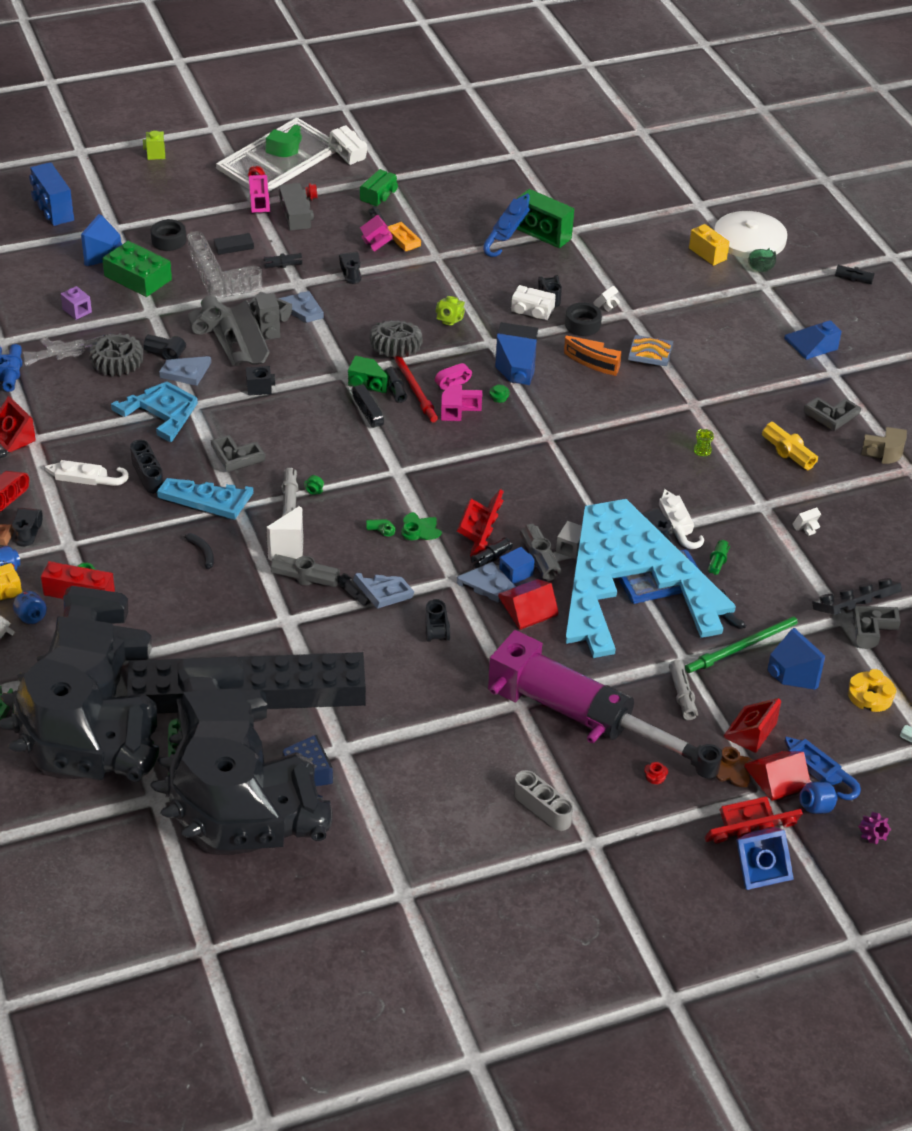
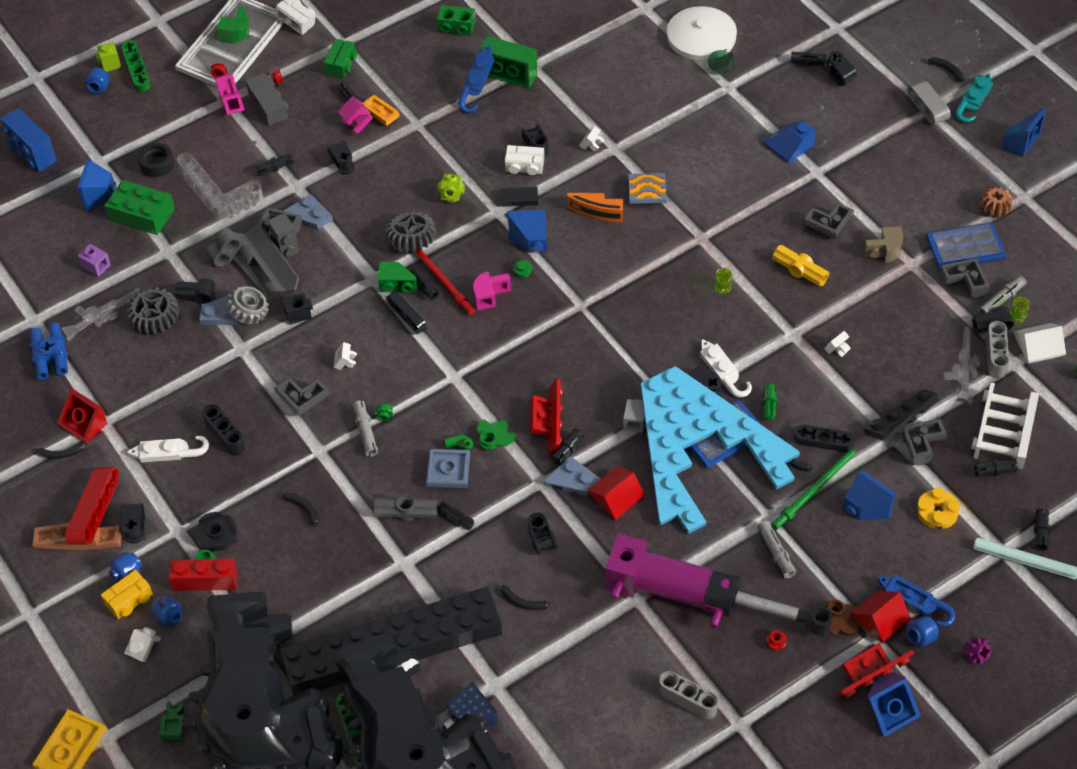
camera: 10 degrees left, 10 degrees up
(116, 553) = (219, 541): none -> black plate
(137, 162) = (97, 80): none -> blue head
(165, 402) = (217, 353): dark azure wing -> none
(179, 155) = (137, 65): none -> green beam
(206, 497) = (296, 450): dark azure wing -> none
(210, 366) = (247, 305): none -> light grey gear
(233, 243) = (221, 154): black tile -> none
(286, 535) = (380, 479): white slope -> none
(291, 430) = (343, 356): none -> white tile
(361, 546) = (448, 468): none -> sand blue plate
(384, 590) = (483, 511): sand blue wing -> none
(398, 682) = (531, 605): none -> black piece
(453, 376) = (475, 260): dark pink beam -> none
(505, 178) = (456, 20): none -> green brick
(517, 565) = (594, 455): blue brick -> none
(541, 551) = (611, 436): dark grey piece -> none
(586, 310) = (575, 156): black tyre -> none
(709, 244) = (668, 55): yellow brick -> none
(754, 724) = (846, 570): red slope -> none
(761, 594) = (830, 433): none -> black beam
(884, 289) = (840, 70): none -> black piece

